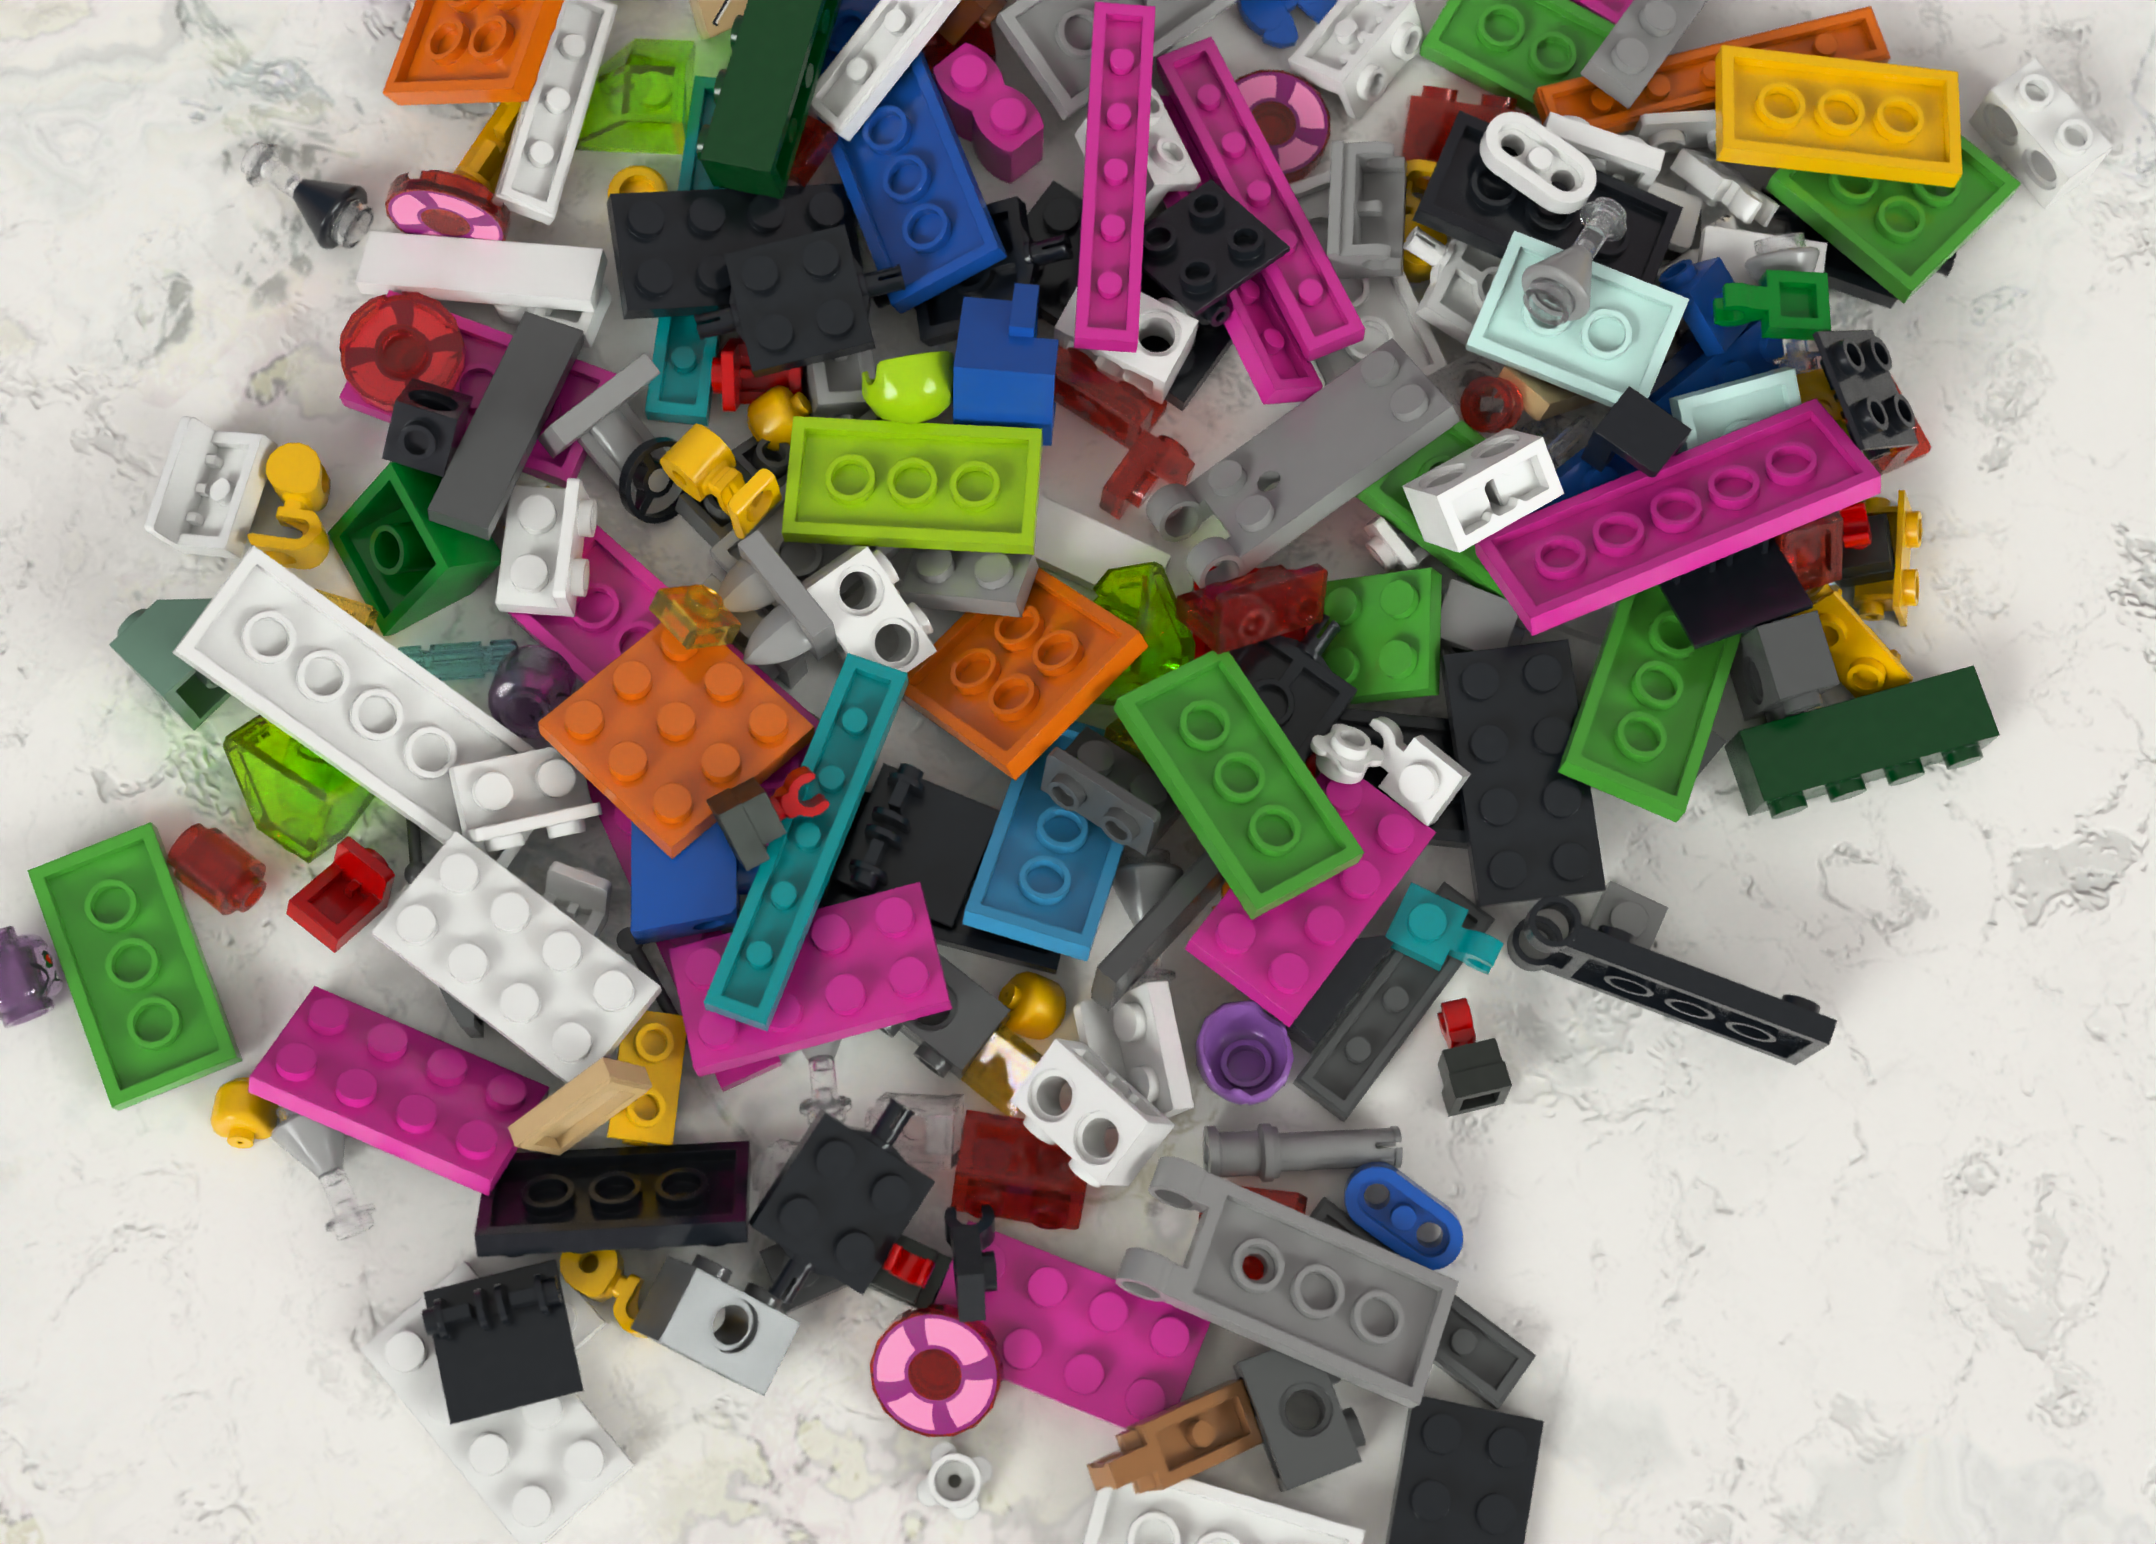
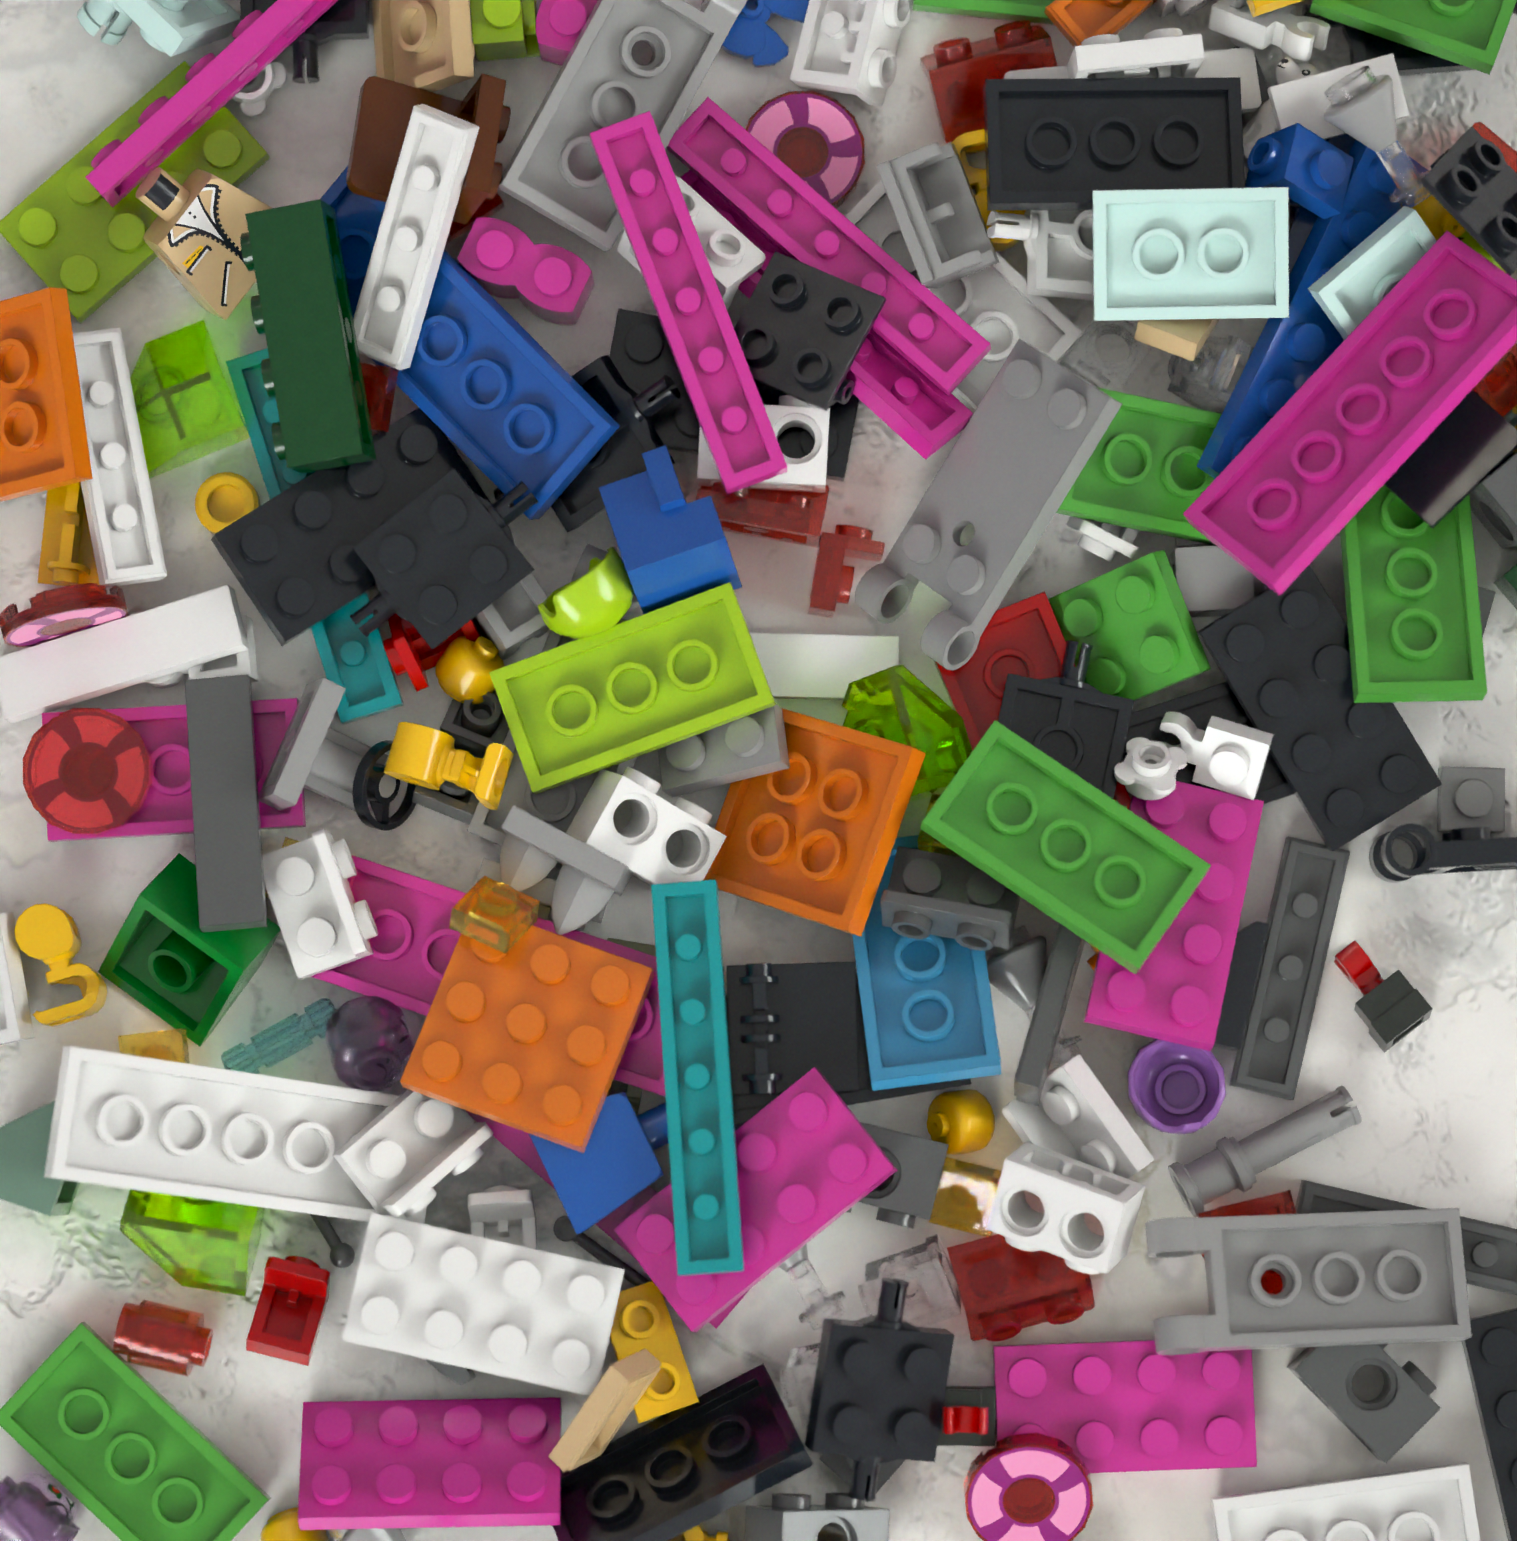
camera: 15 degrees left, 10 degrees up
(426, 426) = (154, 841): black brick -> none
(754, 819) = (644, 1088): pearl dark grey piece -> none
(972, 1268) = (1022, 1396): black plate -> none
(1180, 1441) = (1272, 1461): medium nougat hinge -> none
(1254, 606) = (1004, 667): clear red bracket -> none
(1401, 1215) = (1380, 1167): blue plate -> none
(1431, 929) = (1296, 891): teal plate -> none
(1483, 489) = (1172, 463): white brick -> none
(1484, 387) = (1130, 381): clear red bush -> none
(1539, 162) = (1085, 100): white plate -> none
(1561, 284) = (1162, 229): clear piece -> none
(1638, 434) = (1296, 350): black panel -> none
(1785, 302) = (1381, 152): green plate -> none

